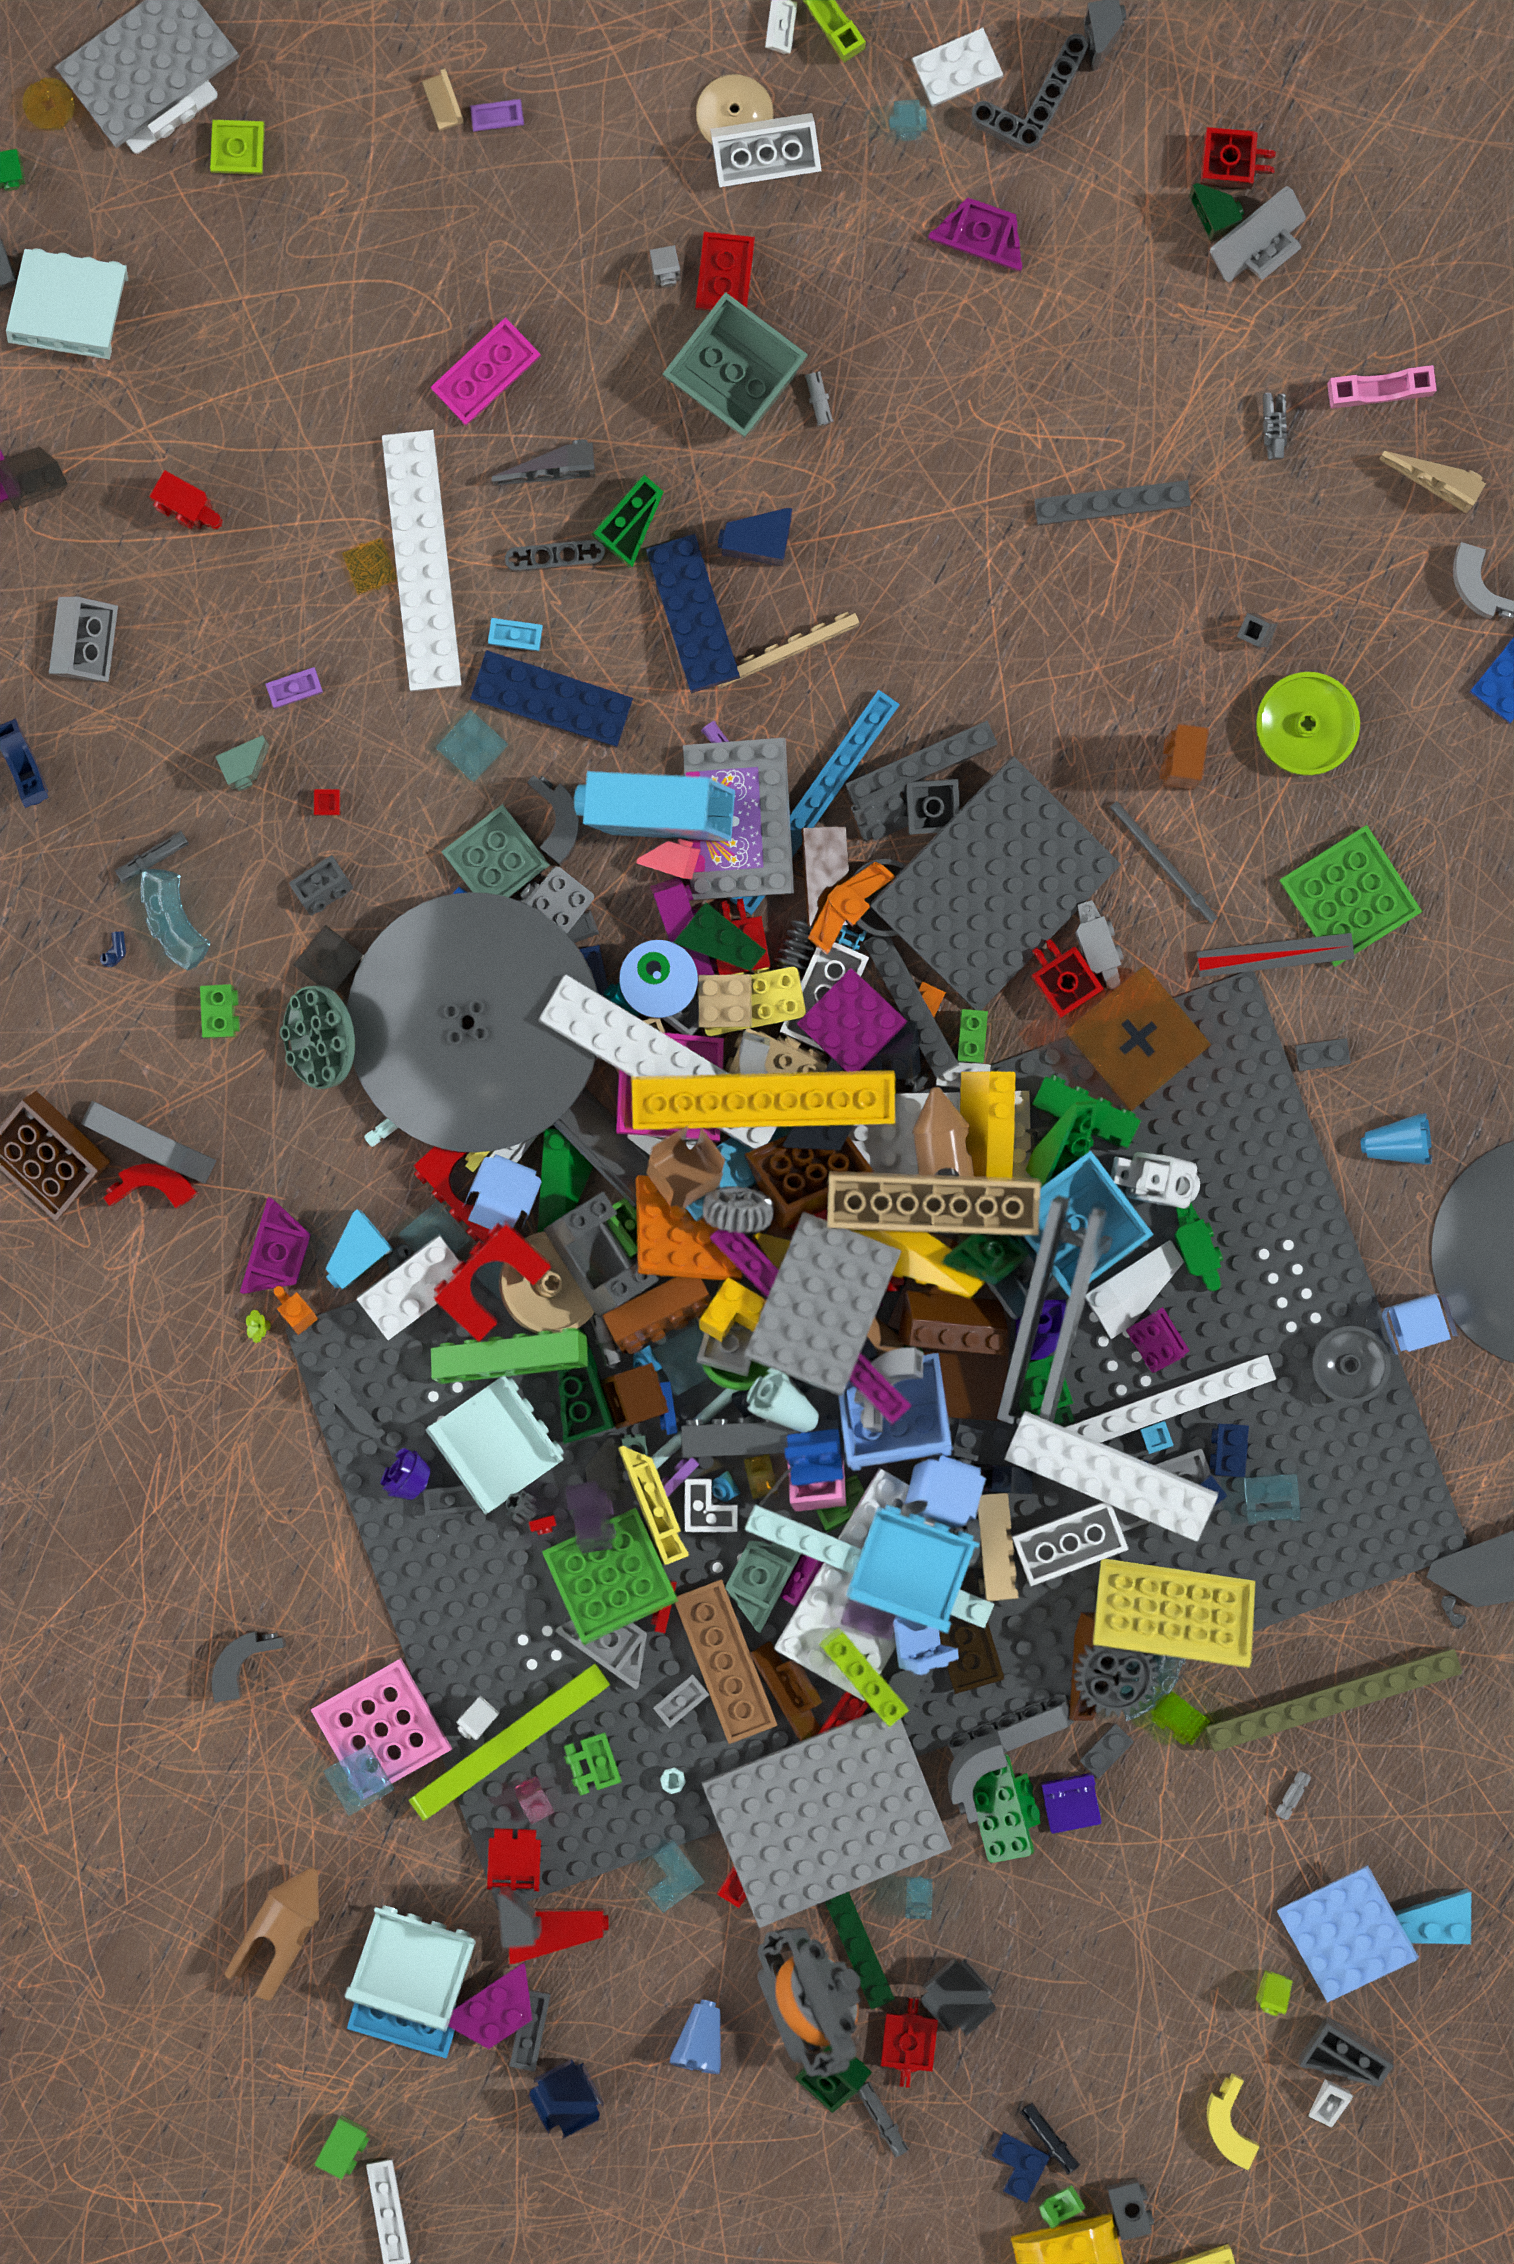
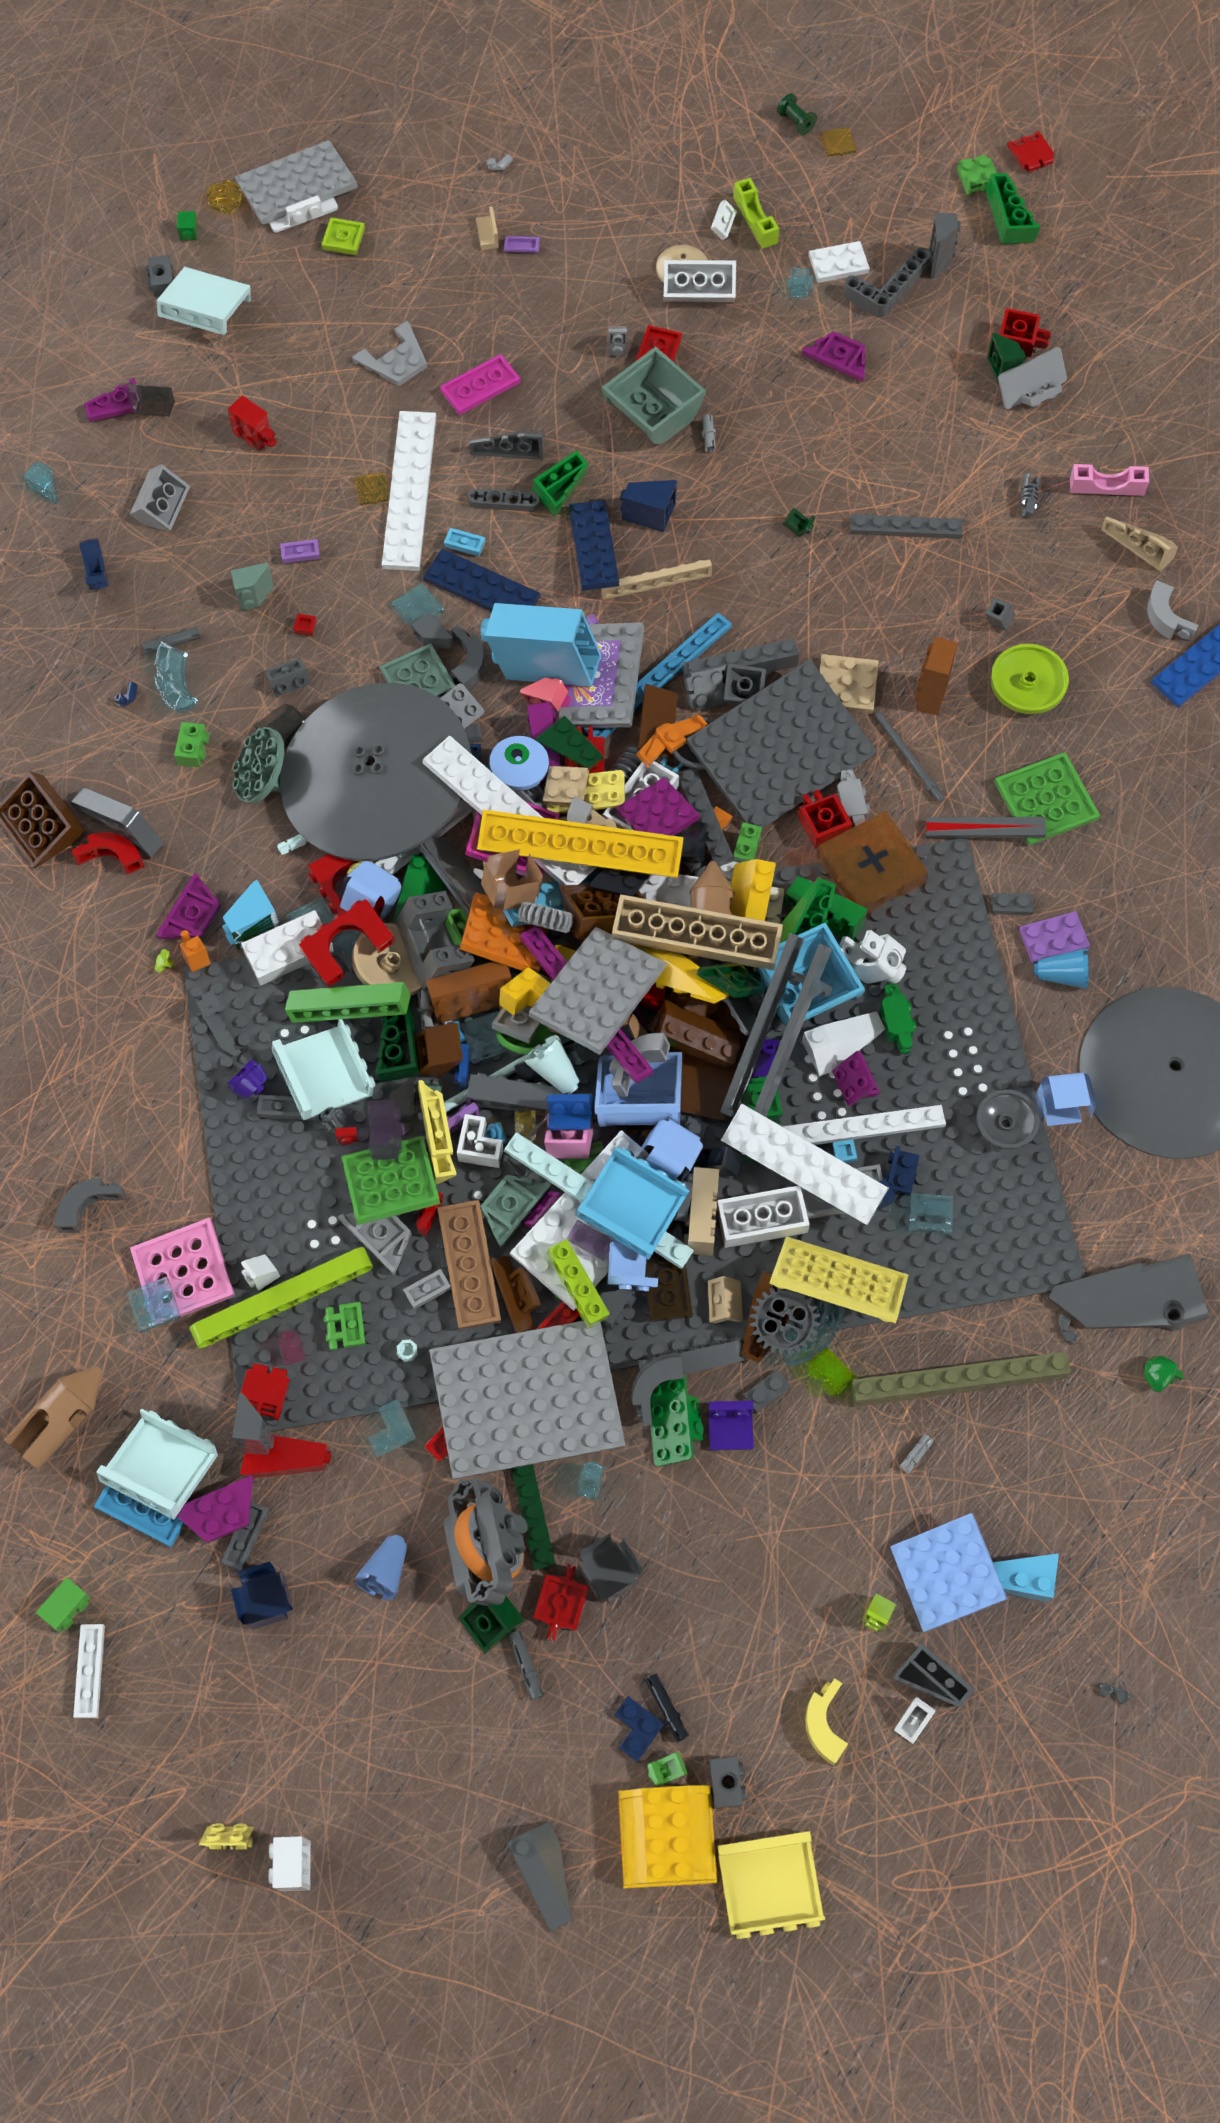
camera: 10 degrees right, 20 degrees down
(367, 348) = (399, 363): none -> light grey wing
(499, 788) = (430, 630): none -> dark grey slope
(966, 526) = (798, 523): none -> dark green bracket
(1040, 1652) = (725, 1300): none -> tan panel
(1069, 762) = (851, 680): none -> tan plate
(1381, 1093) = (1054, 936): none -> medium lavender plate

